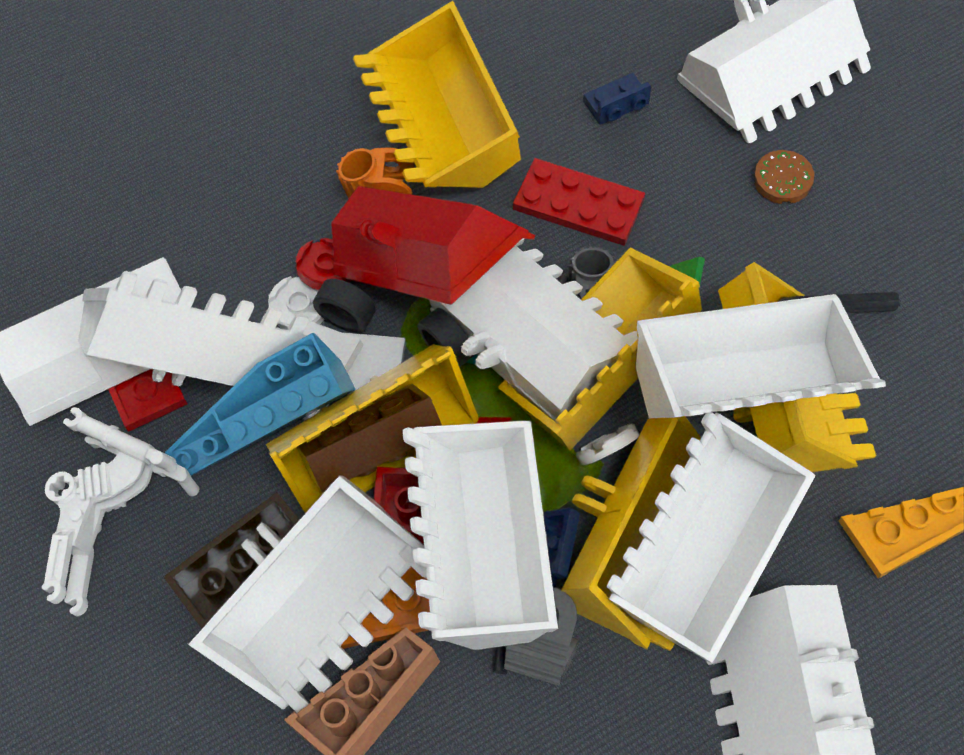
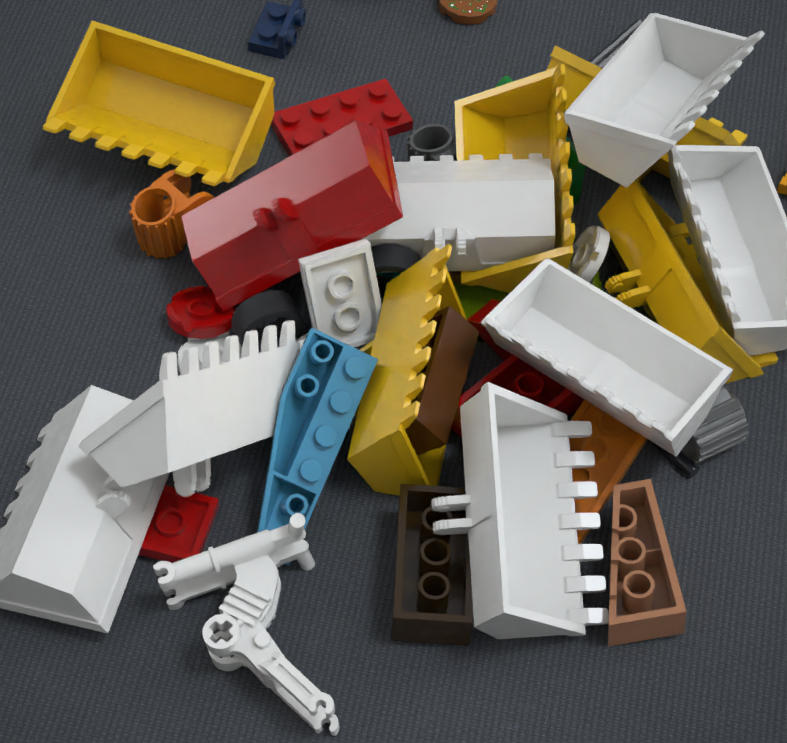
camera: 55 degrees left, 10 degrees down
(387, 325) = (343, 292): none -> white tile

